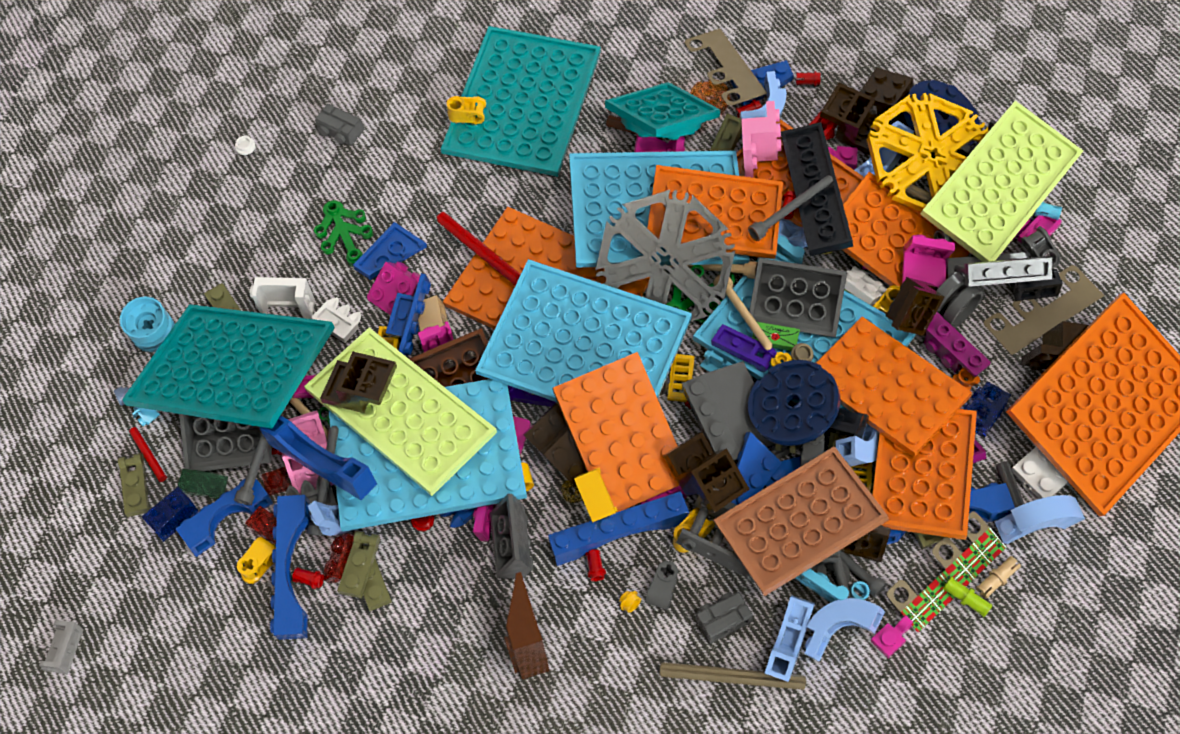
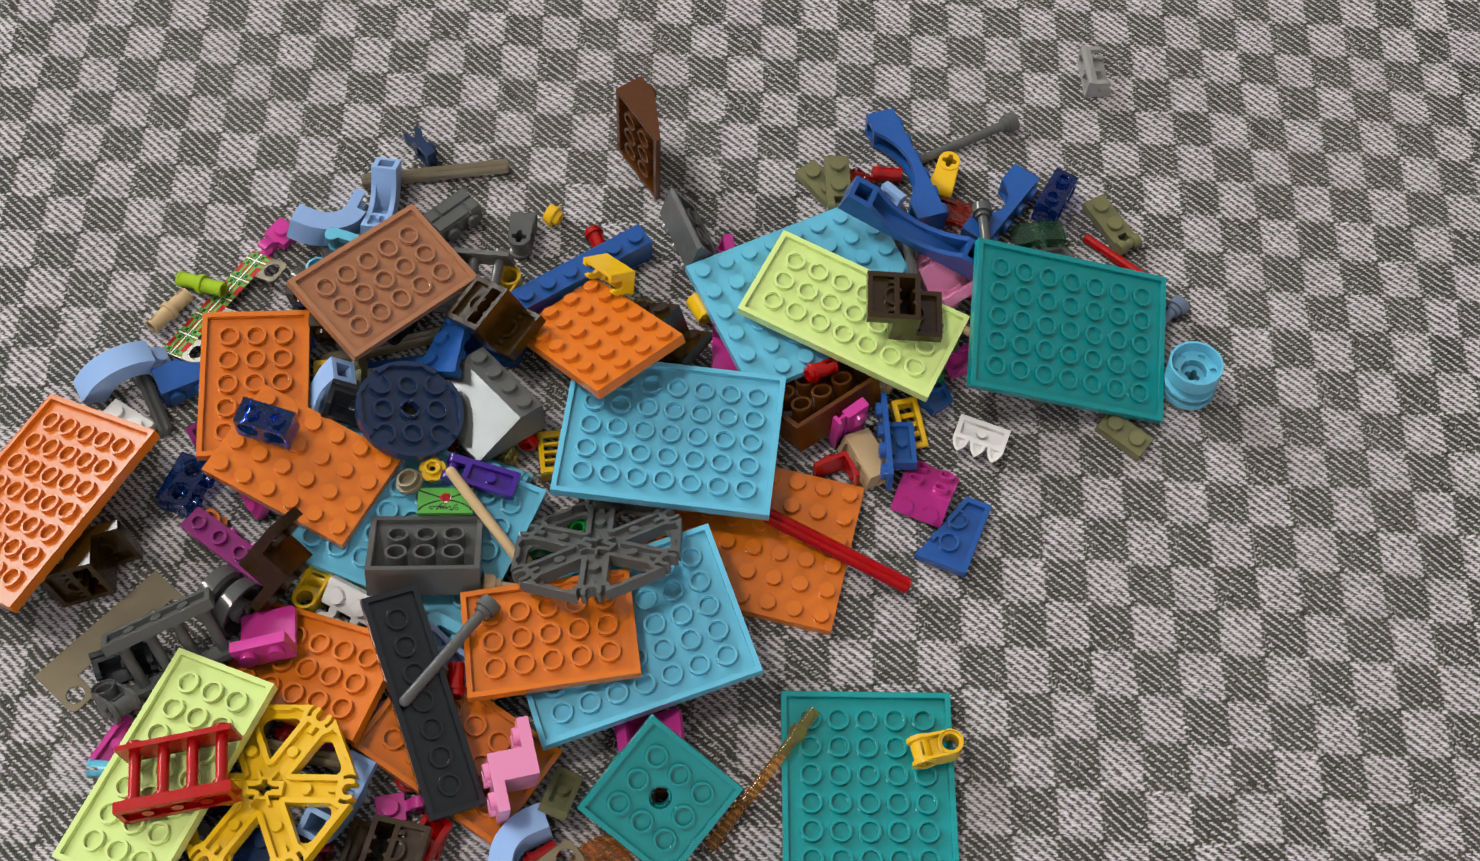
camera: 155 degrees right, 0 degrees up
(171, 608) = (1008, 123): none -> dark grey piece
(245, 145) = (1213, 649): white plate -> none
(283, 293) = (1051, 444): white panel -> none
(339, 125) = (1103, 702): dark grey brick -> none
(342, 229) = (1027, 556): green plant -> none
(447, 380) = (818, 370): none -> red pin
(460, 322) = (836, 462): none -> red bracket
(557, 137) = (796, 734): none -> clear orange bar
(739, 699) = (423, 150): none -> dark blue plate
(915, 401) = (266, 423): none -> clear blue brick
(997, 144) = (192, 795): none -> red fence

